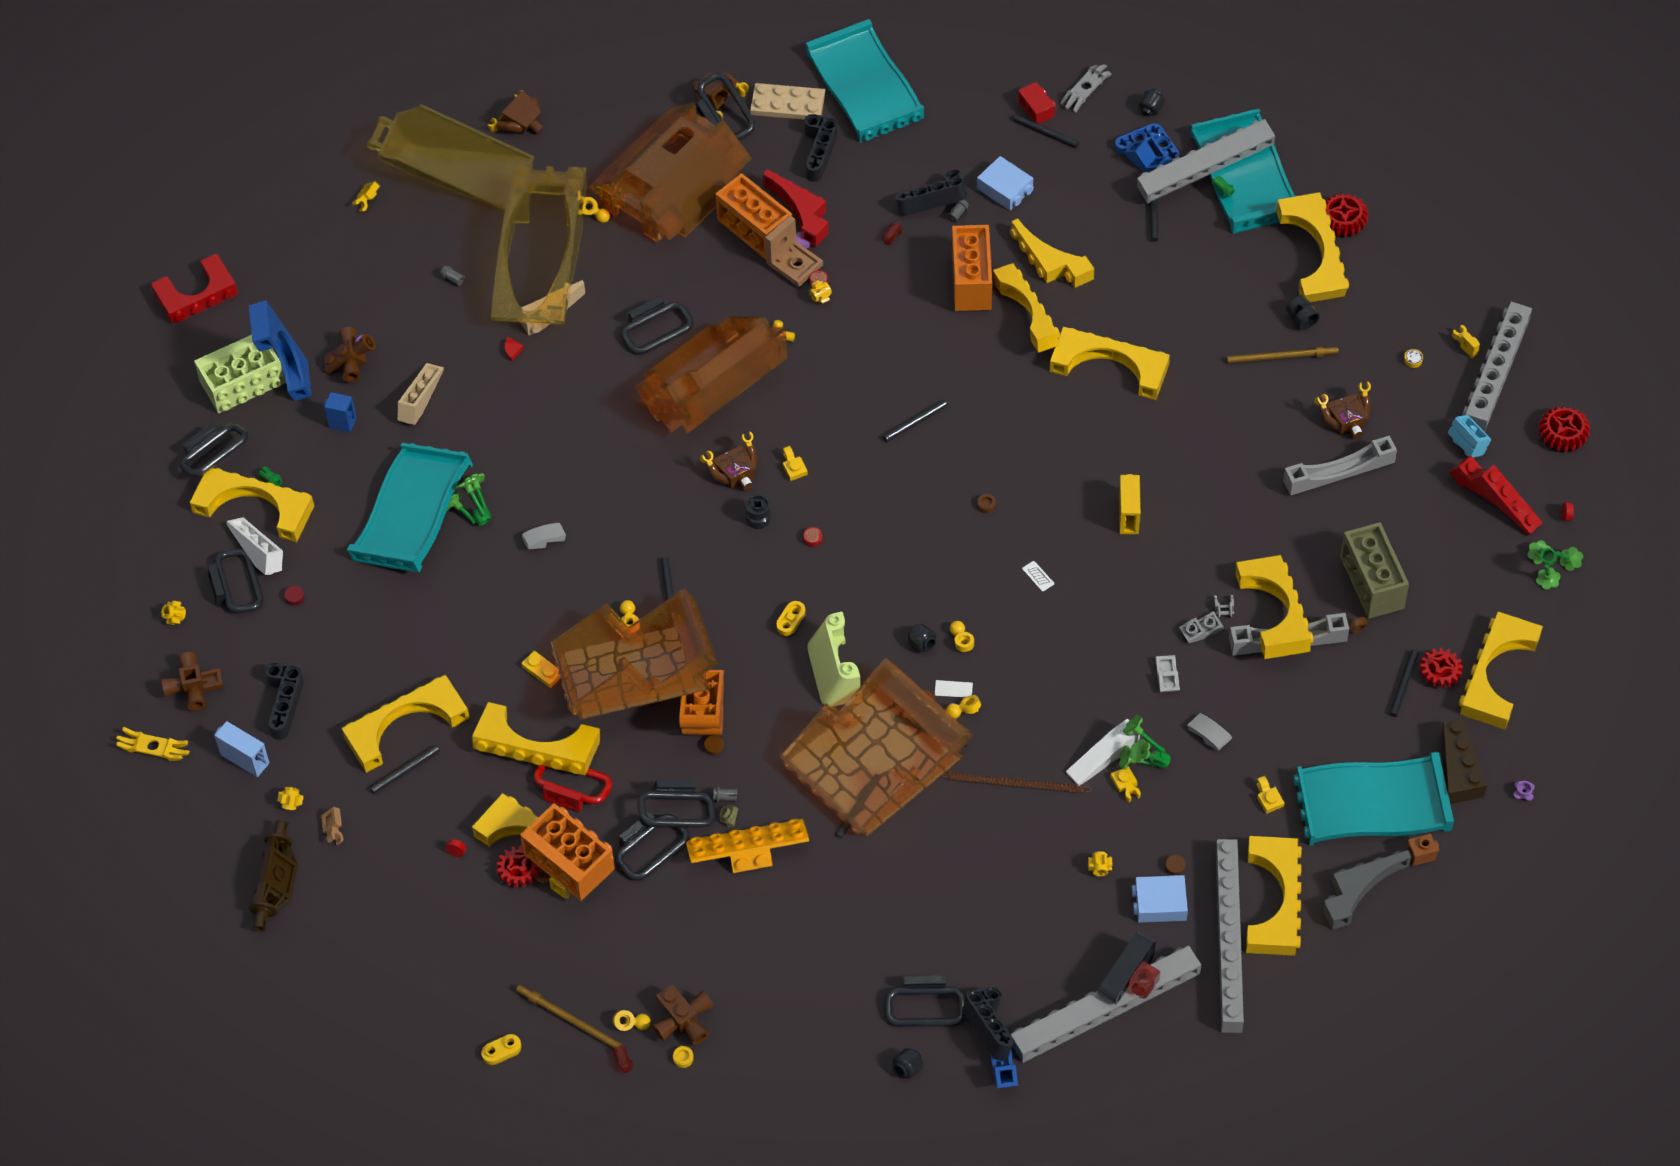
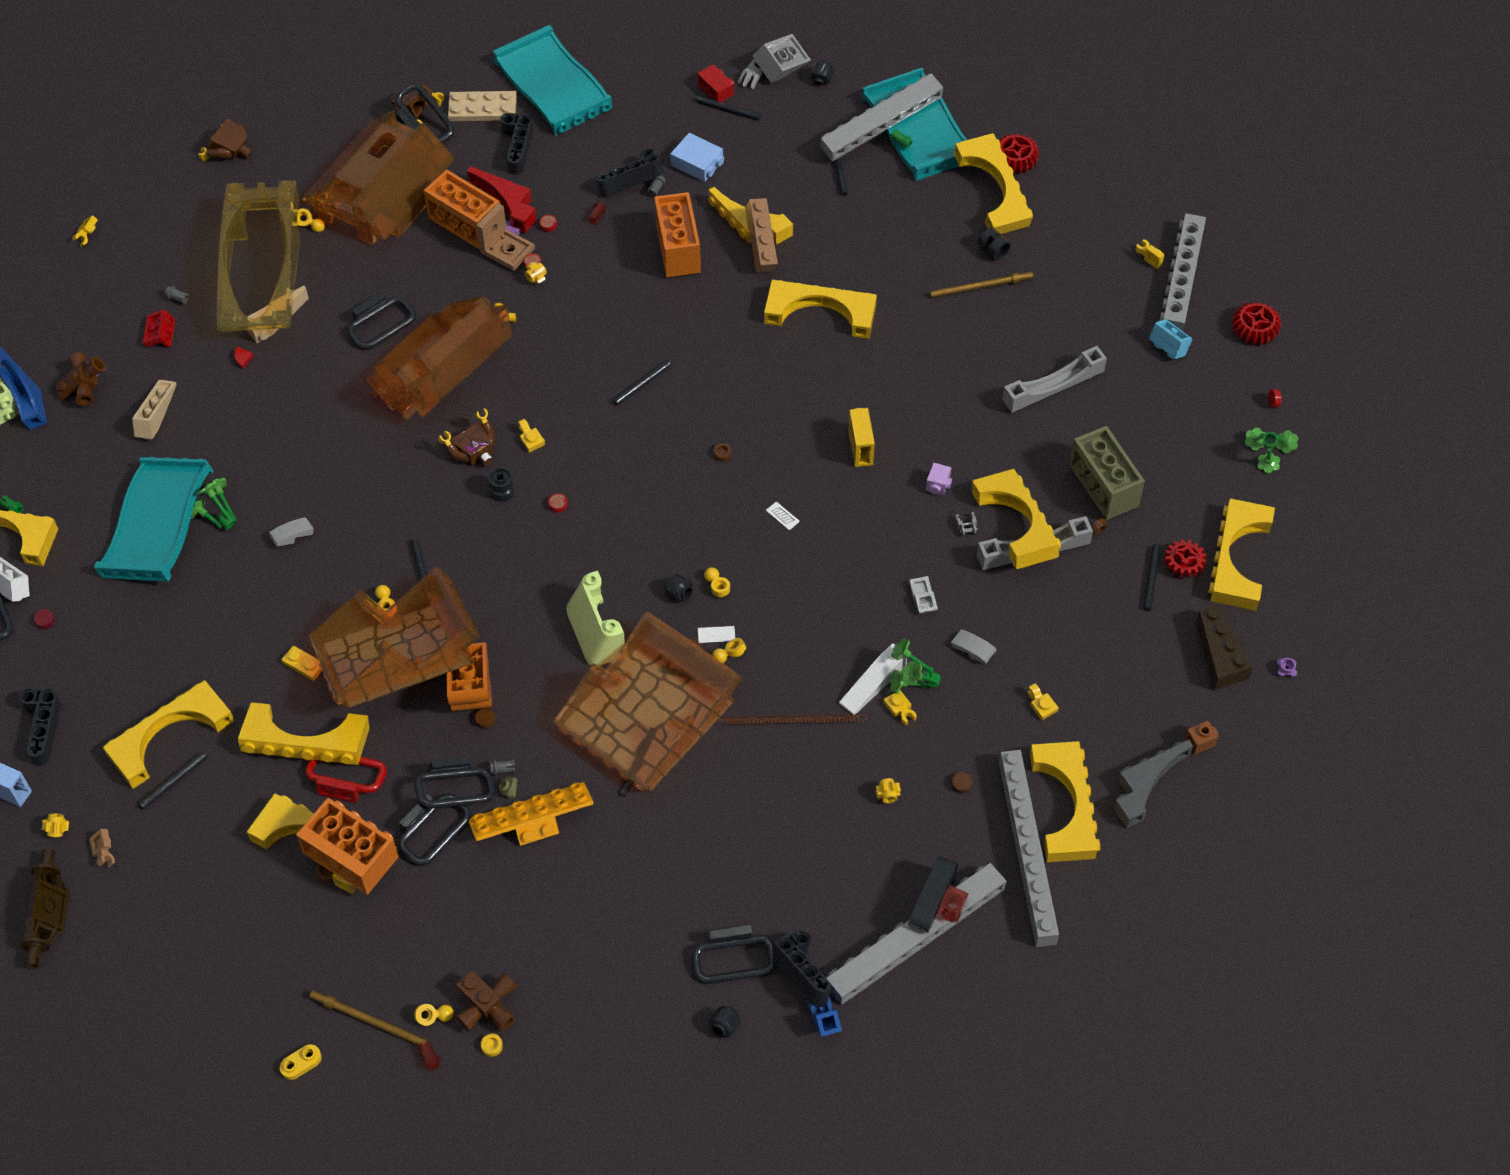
camera: 10 degrees left, 0 degrees up
(340, 412) = (75, 434): blue brick -> none
(431, 310) = (159, 329): none -> red bracket
(449, 154) = (160, 183): clear yellow windscreen -> none
(455, 848) = (232, 855): red tile -> none
(518, 867) = (298, 869): red gear -> none
(789, 619) = (545, 585): yellow plate -> none
(840, 238) = (548, 223): none -> red tile
(1011, 284) = (716, 246): yellow arch -> none
(1059, 278) = (761, 235): none -> medium nougat brick
(1110, 81) = (781, 57): none -> light grey slope
(1143, 156) = (822, 121): blue brick -> none
(1152, 138) = (827, 101): blue beam -> none
(1160, 899) = (953, 818): light blue brick -> none
(1200, 629) = (948, 548): light grey slope -> none
(1203, 557) = (939, 479): none -> lavender brick
(1347, 413) = (1053, 330): reddish brown torso -> none
(1373, 799) = (1144, 693): teal panel -> none
(1413, 358) = (1103, 274): tile -> none
(1496, 489) = (1206, 384): red arch -> none

